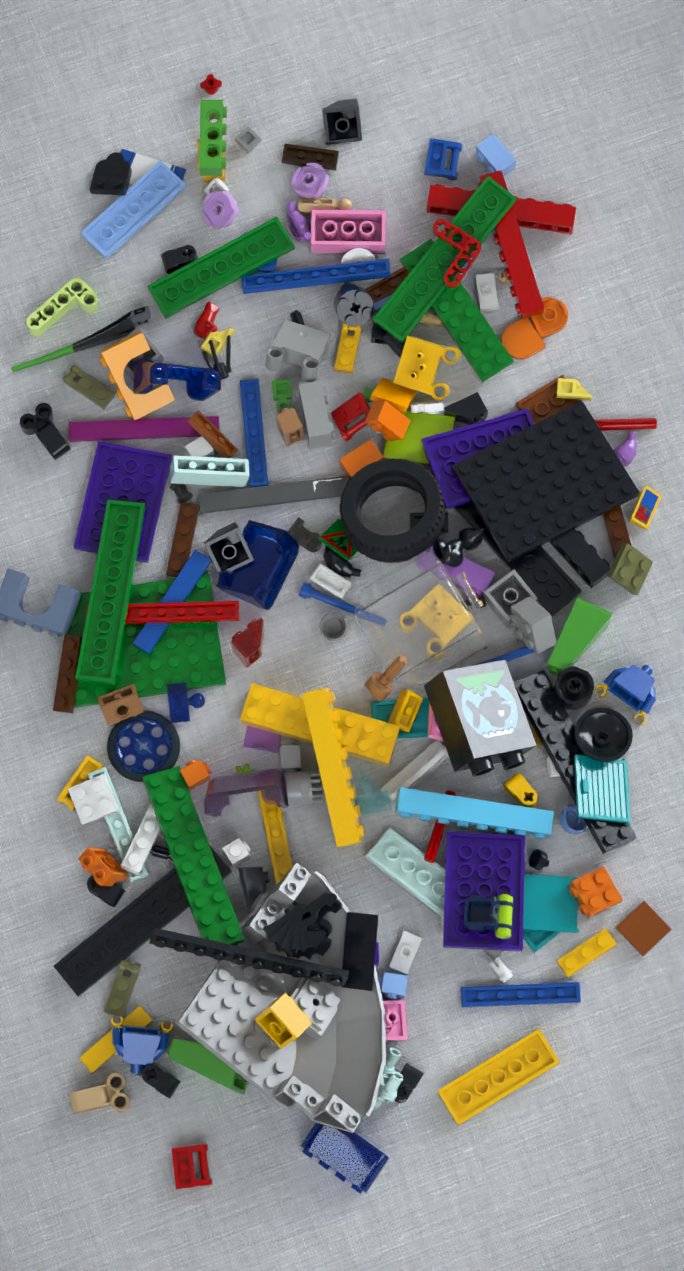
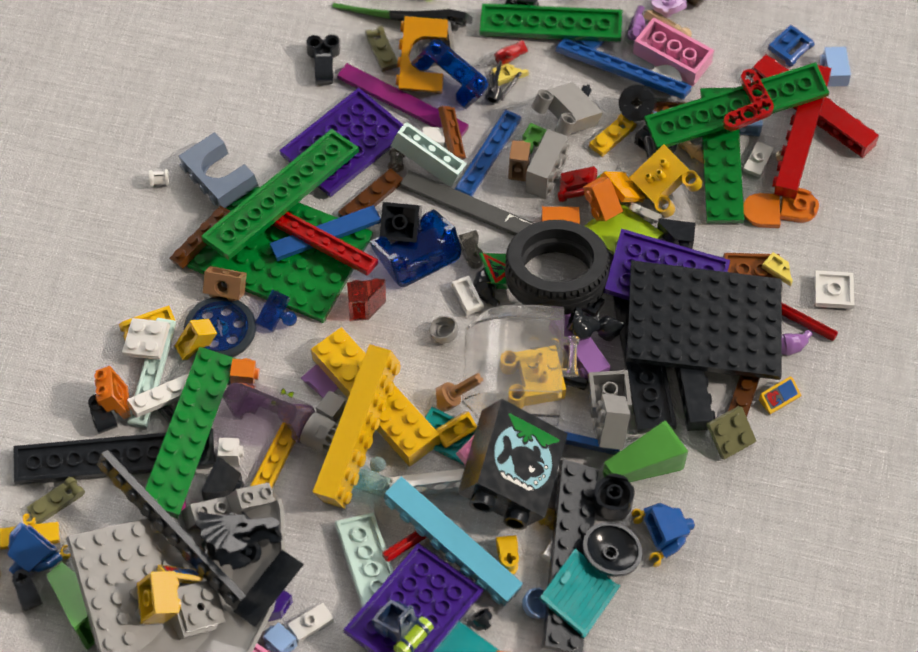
camera: 30 degrees right, 15 degrees down
(133, 771) = (194, 335): none -> yellow arch
(278, 987) = (184, 575): none -> yellow slope
(308, 592) = (442, 291): blue piece -> none
(628, 380) = (834, 289): none -> white plate

